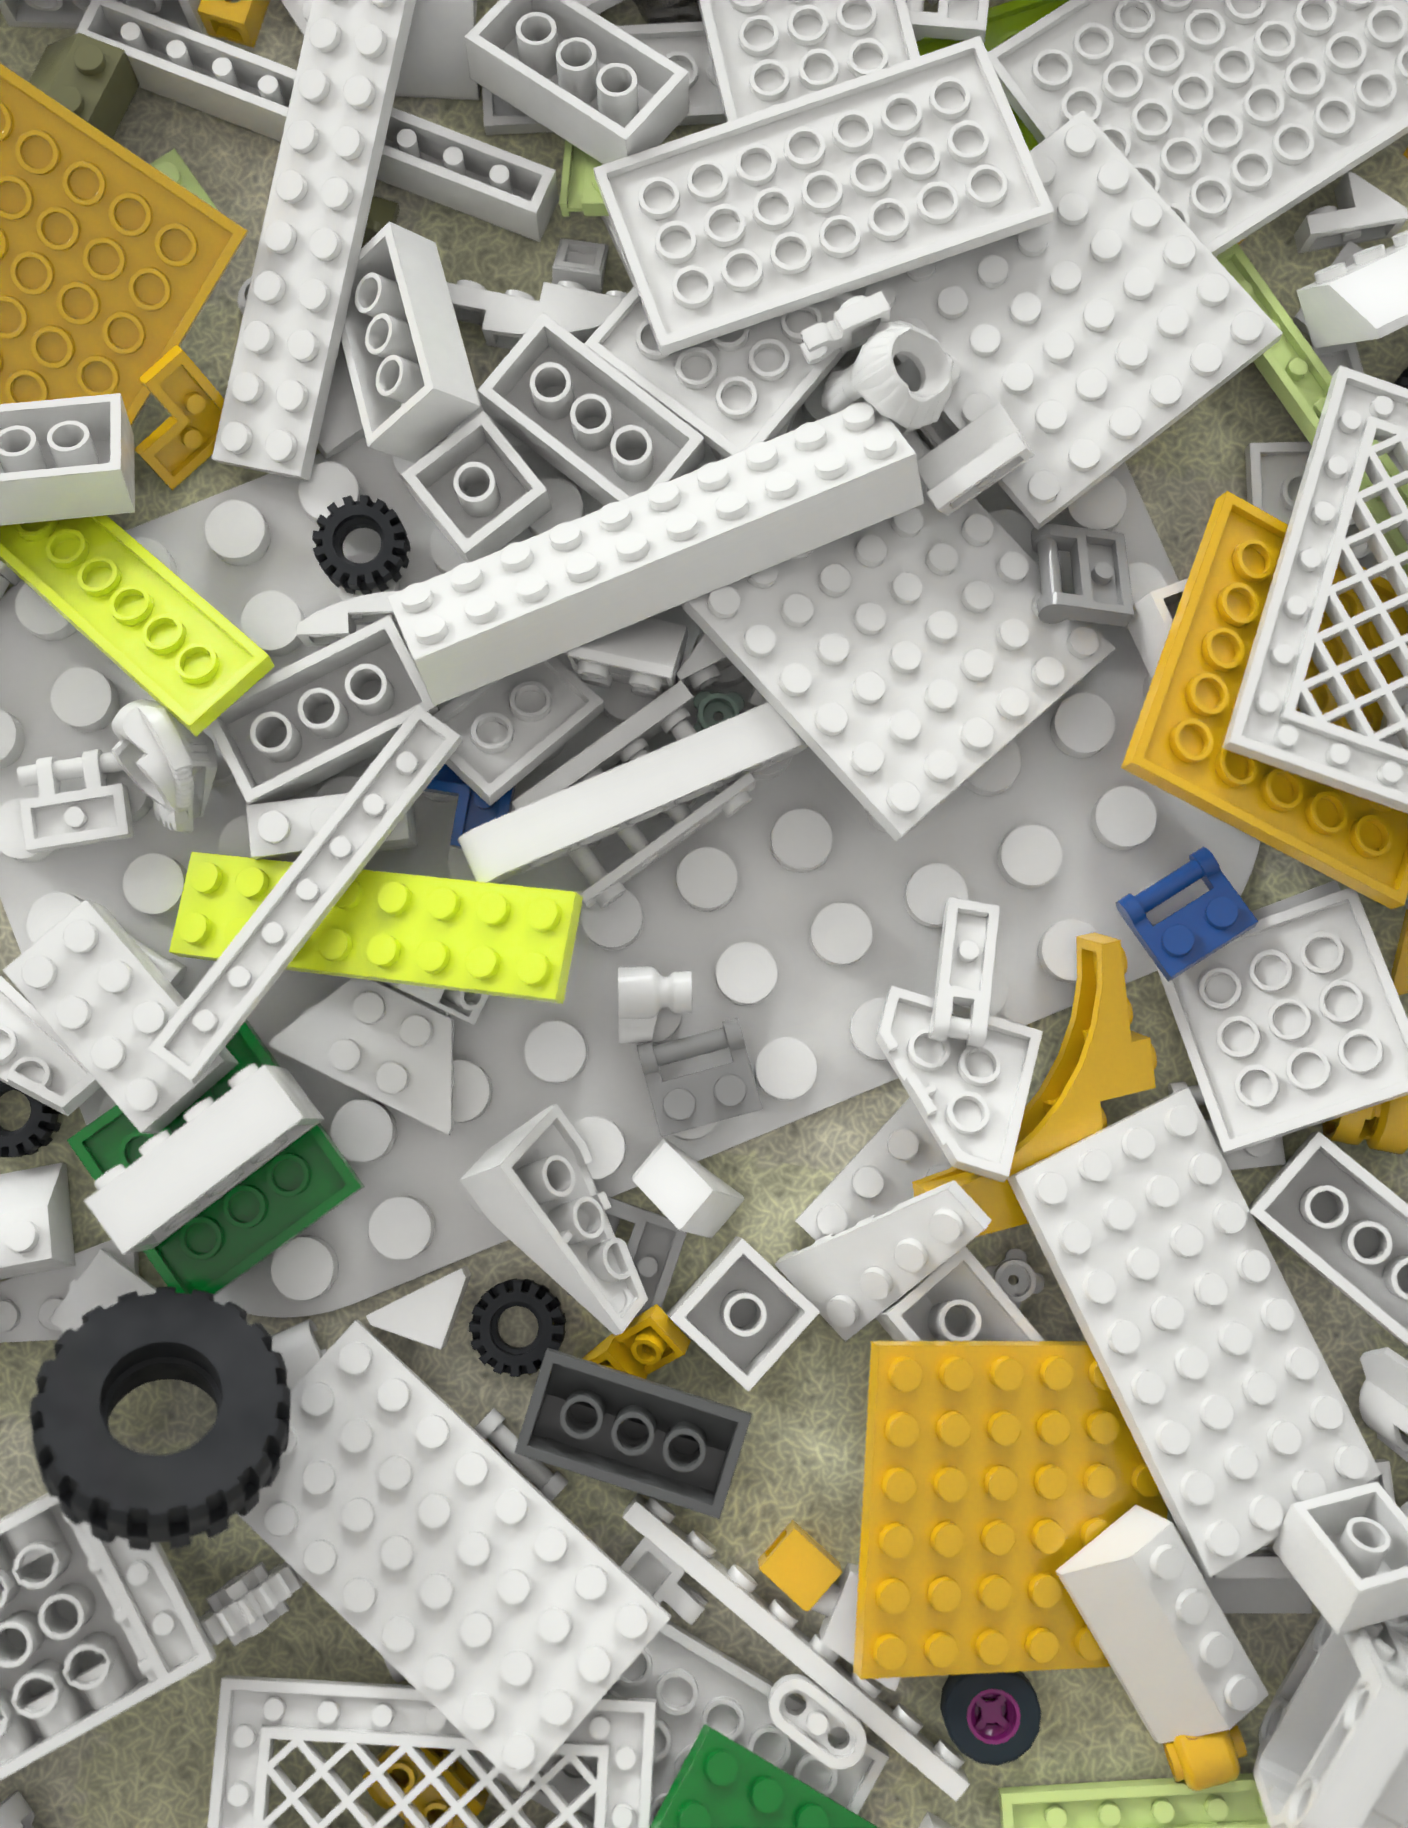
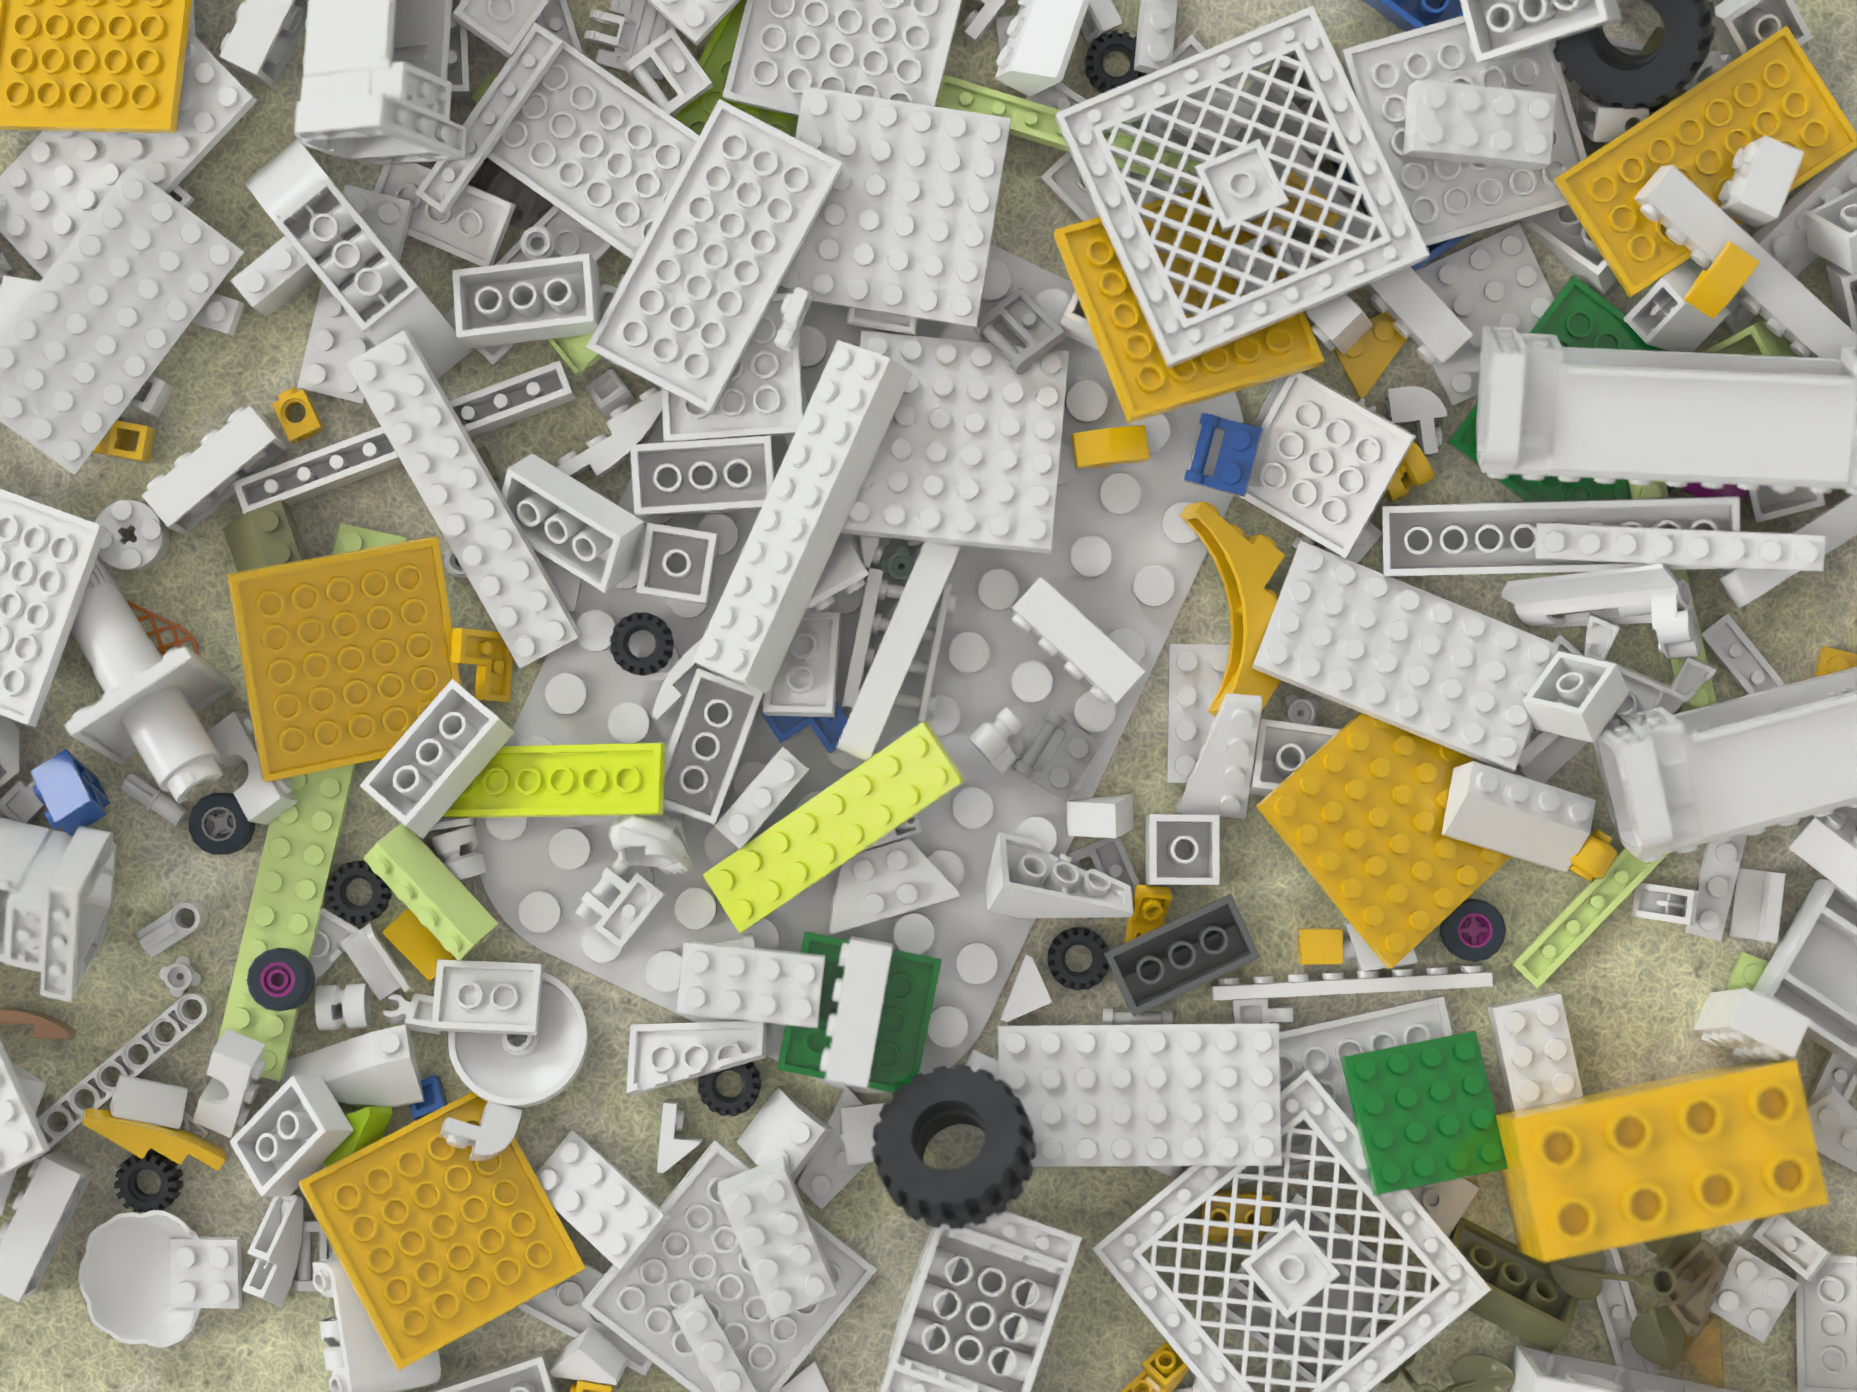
camera: 45 degrees left, 5 degrees up
(249, 1603) = (1072, 1202): white gear -> none
(305, 895) = (790, 840): white plate -> none
(651, 26) = (533, 233): none -> white plate
(815, 1720) = (1392, 1010): white plate -> none
(837, 966) = (1077, 641): none -> white brick
(907, 393) = (834, 304): white piece -> none
(963, 1092) = (1184, 637): white plate -> none
(965, 971) = (1140, 583): white plate -> none
(973, 459) = (914, 324): white panel -> none
(1068, 789) = (1110, 446): none -> yellow slope

